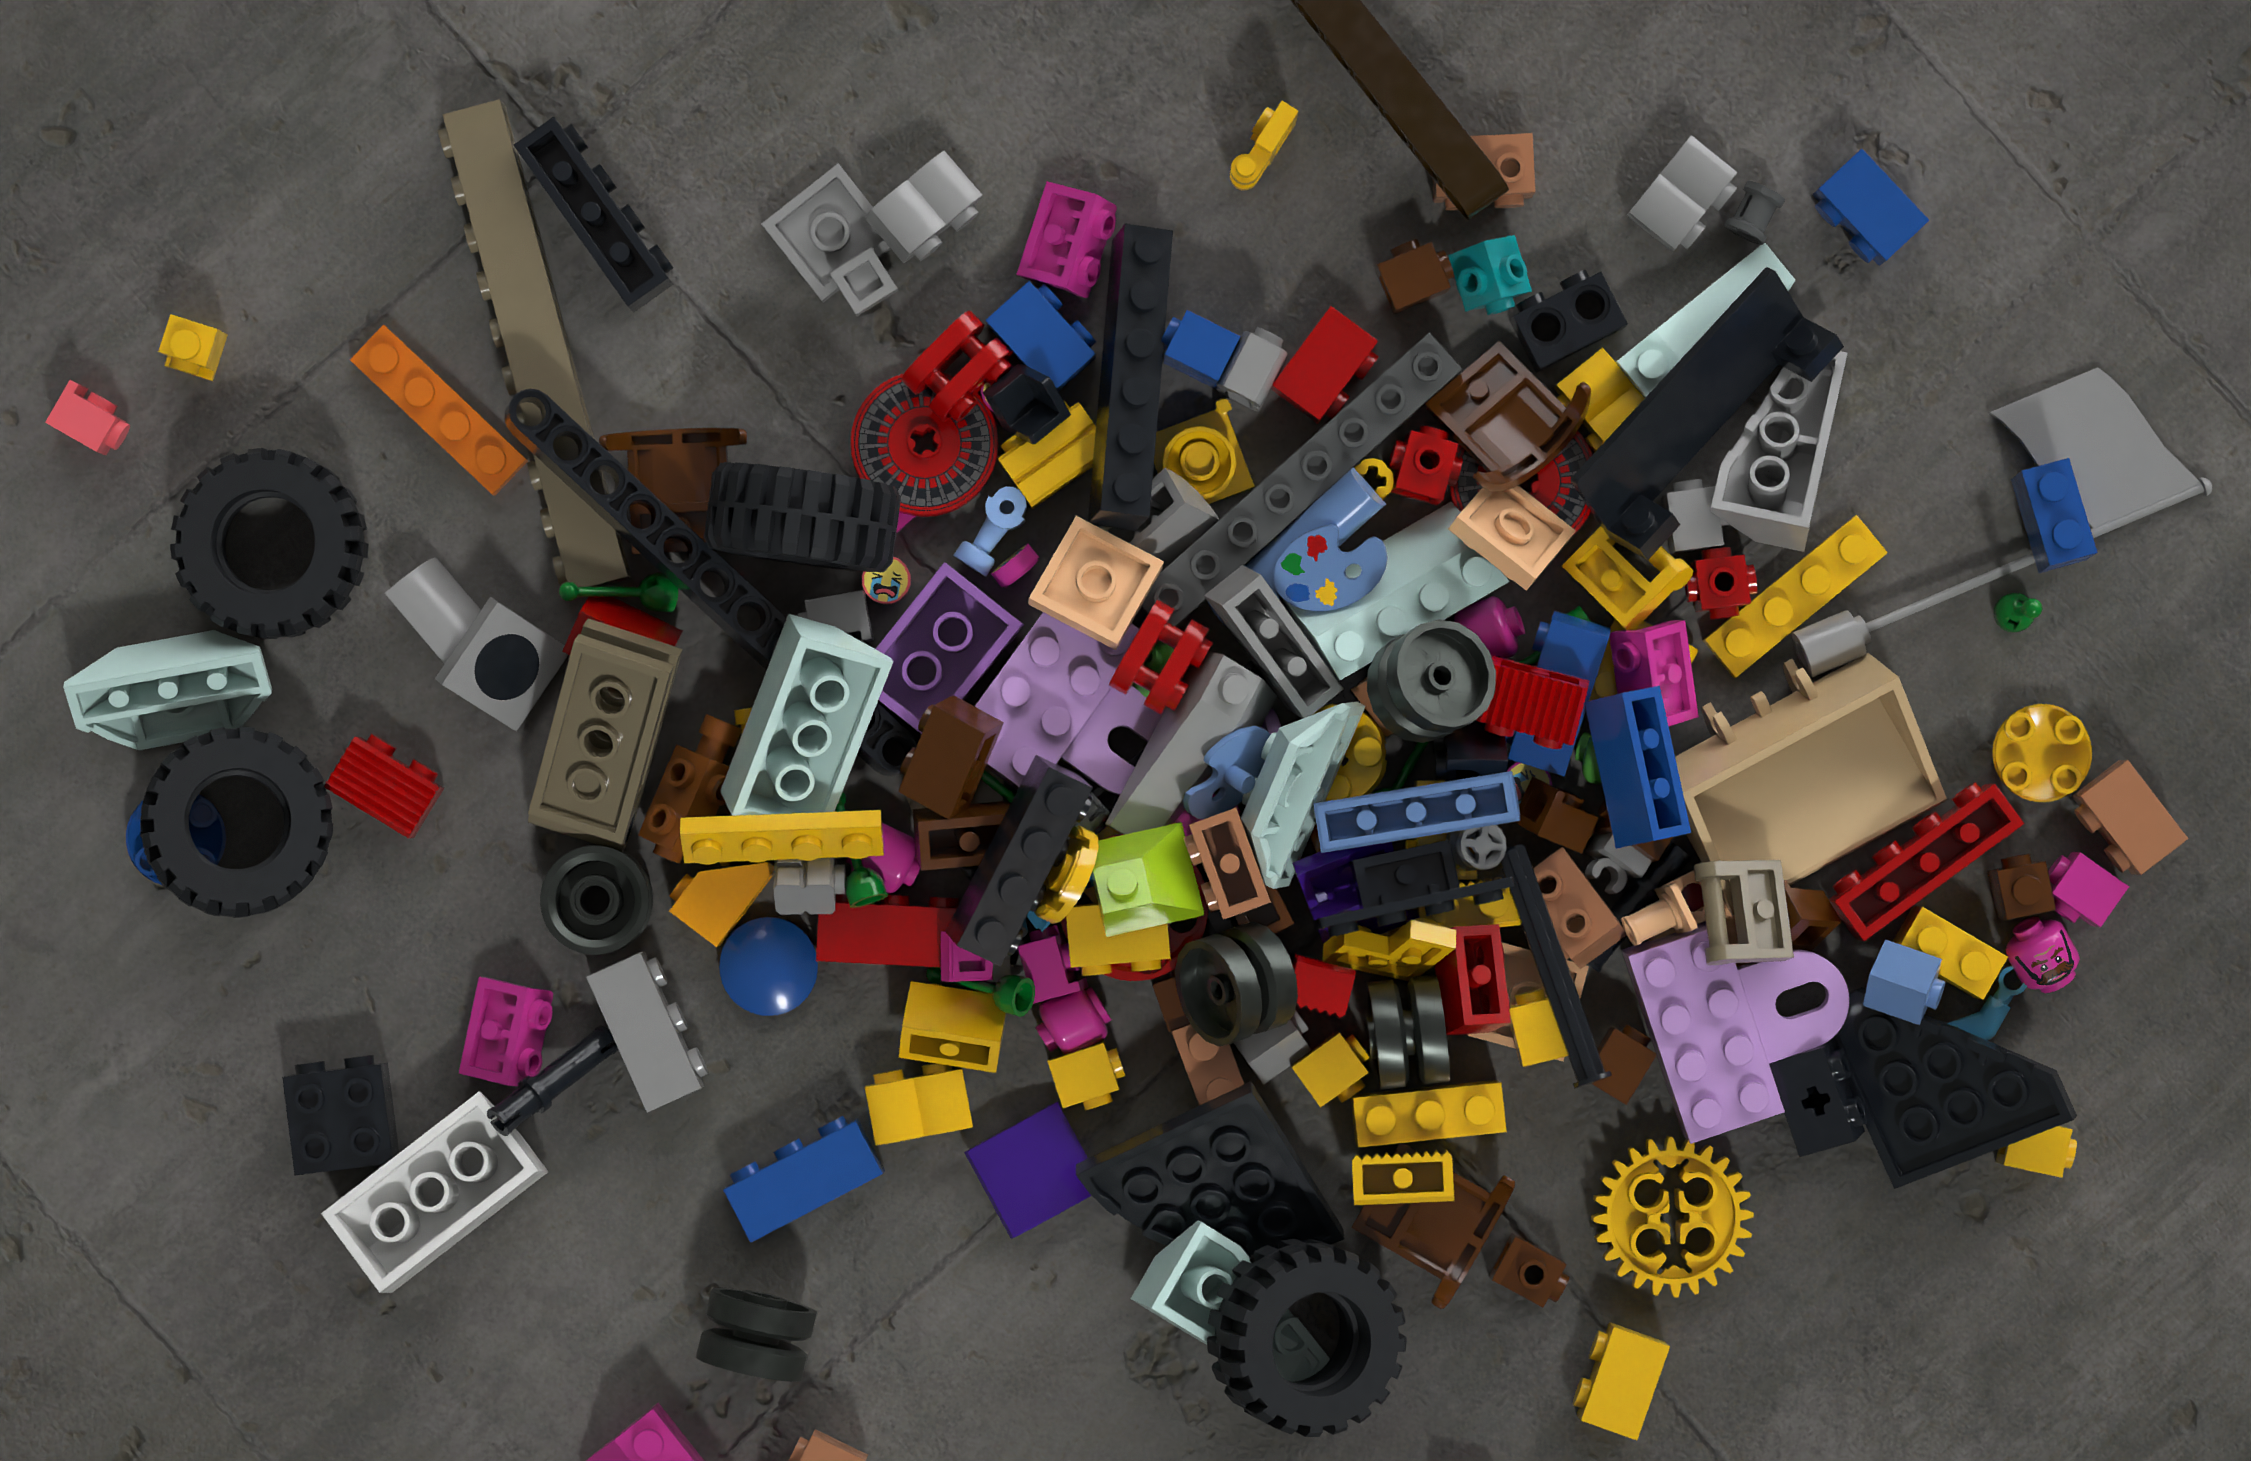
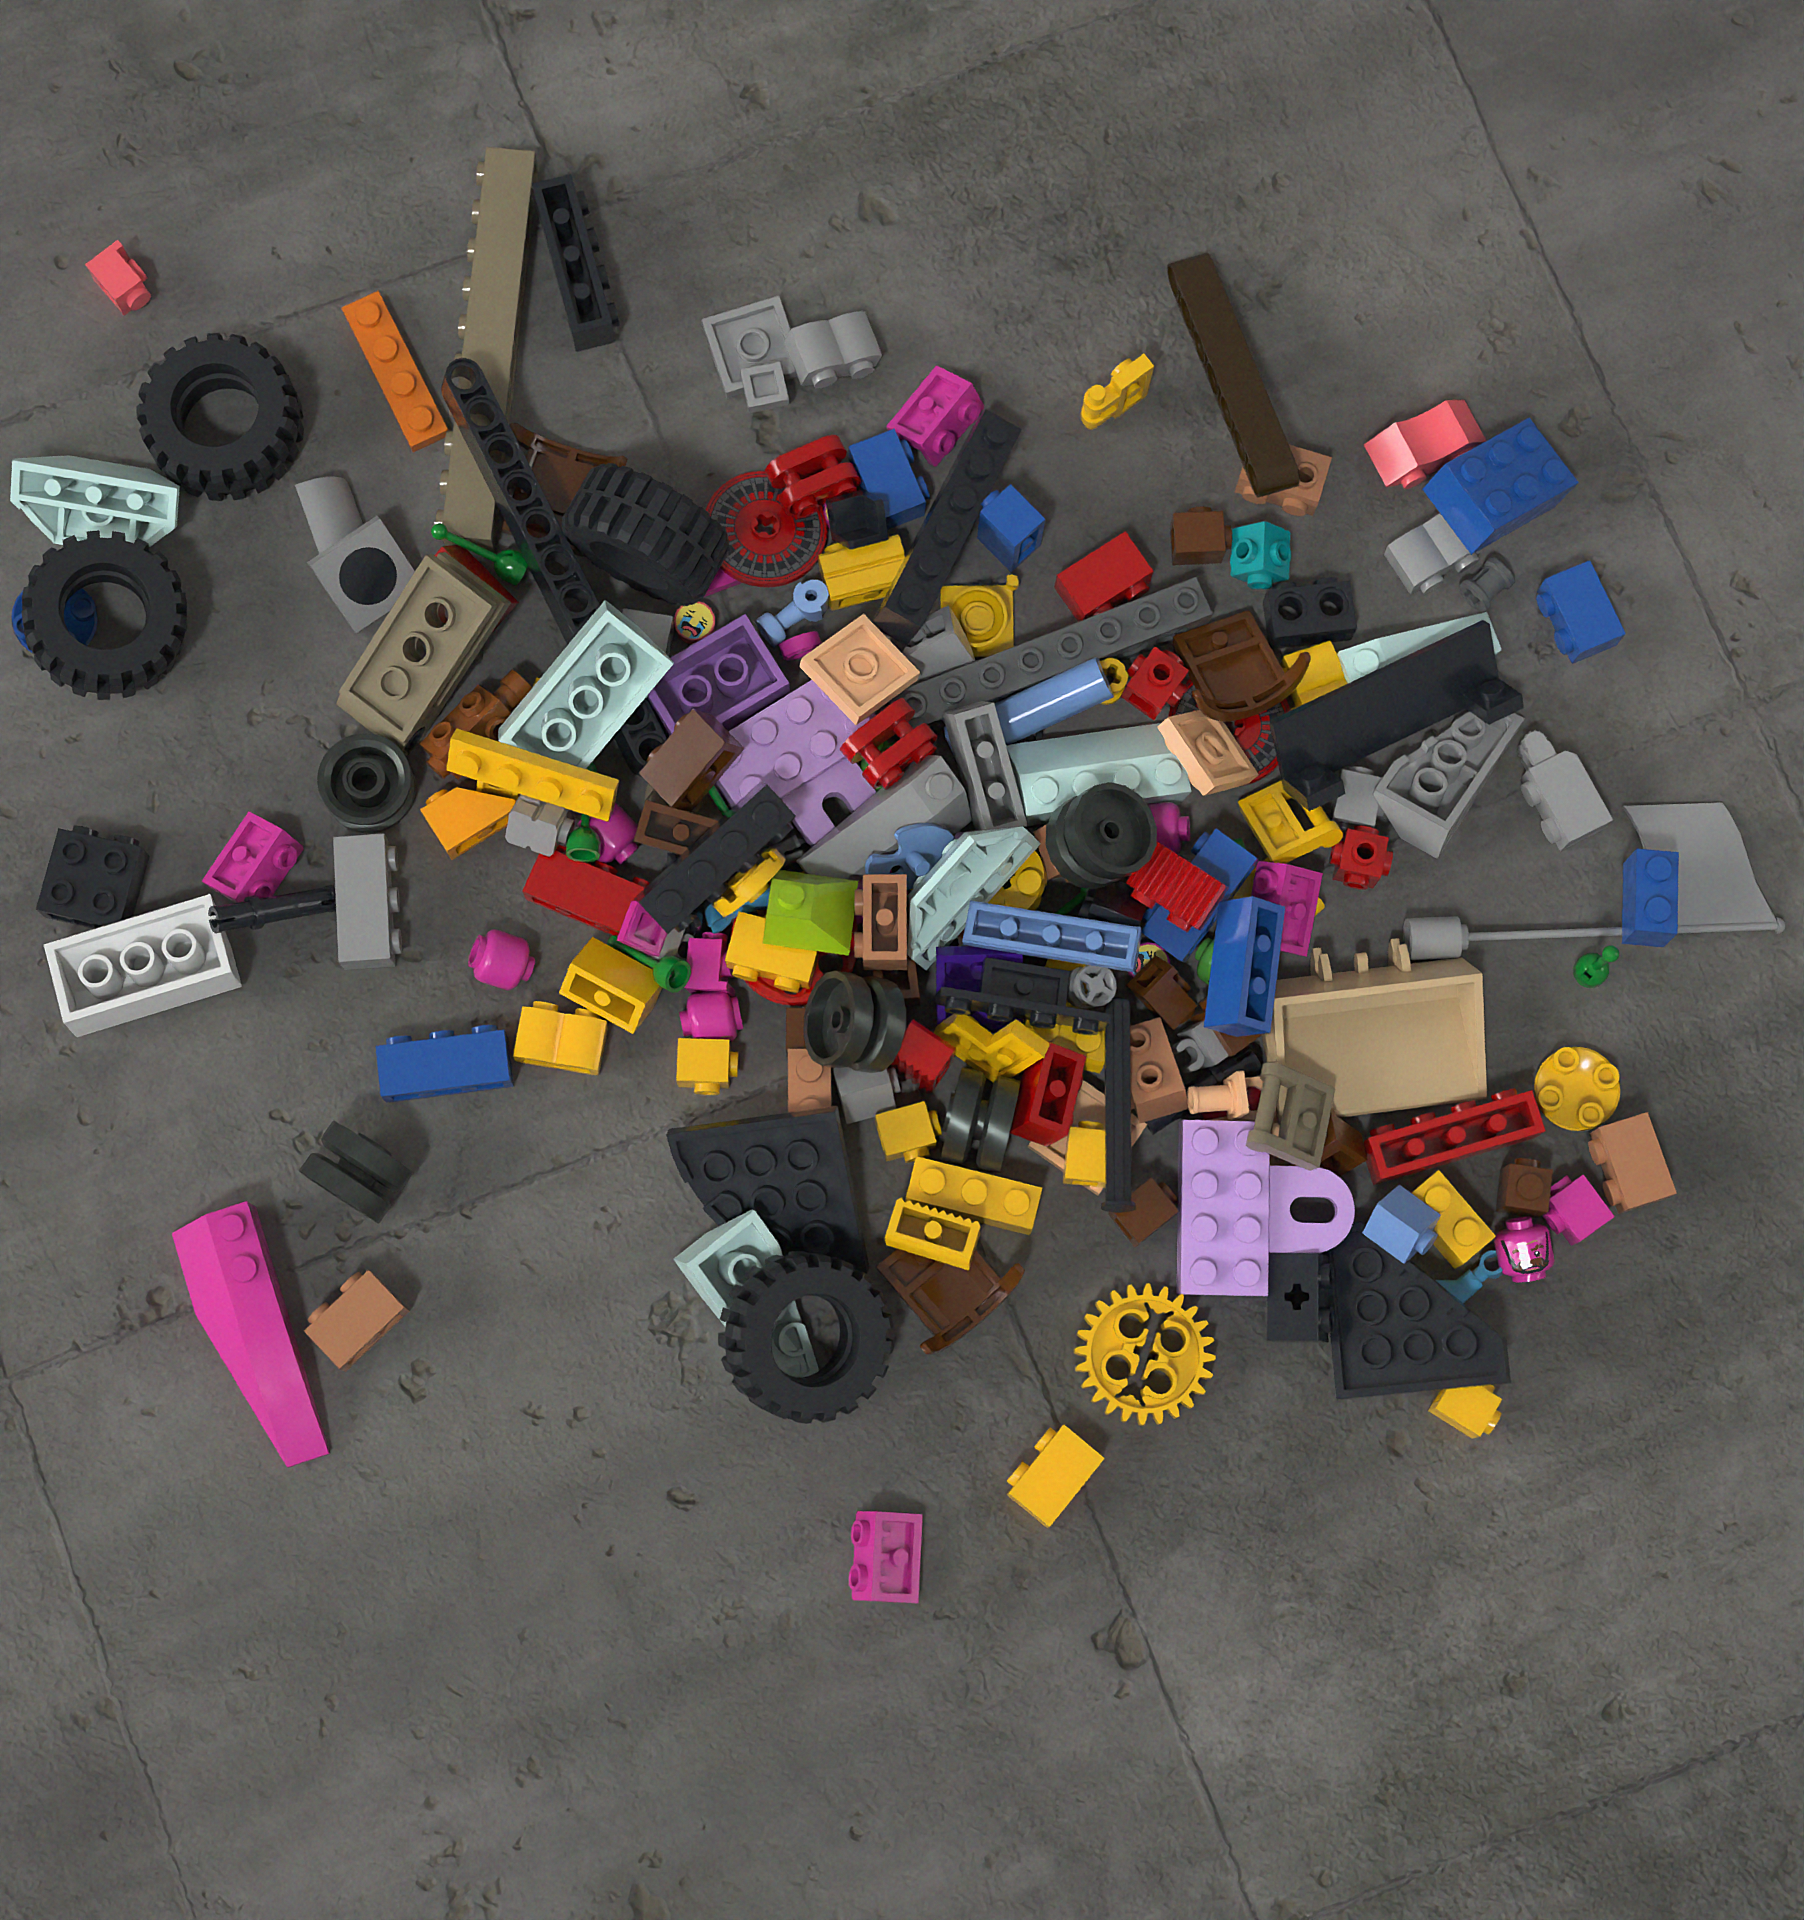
camera: 15 degrees right, 10 degrees down
(192, 347) = (223, 253): yellow brick -> none
(384, 785) = (234, 636): red brick -> none
(768, 966) = (483, 888): blue dish -> none
(820, 1041) = (501, 959): none -> dark pink head
(1031, 1169) = (631, 1125): dark purple slope -> none
(1252, 368) = (1044, 557): light grey brick -> none
(1314, 575) = (1037, 725): medium blue piece -> none
(1516, 1258) = (993, 1352): reddish brown brick -> none
(1631, 72) = (1424, 443): none -> coral brick
(1733, 98) = (1500, 485): none -> blue brick
(1795, 596) = (1417, 894): yellow plate -> none
(1916, 426) = (1560, 792): none -> light grey hinge

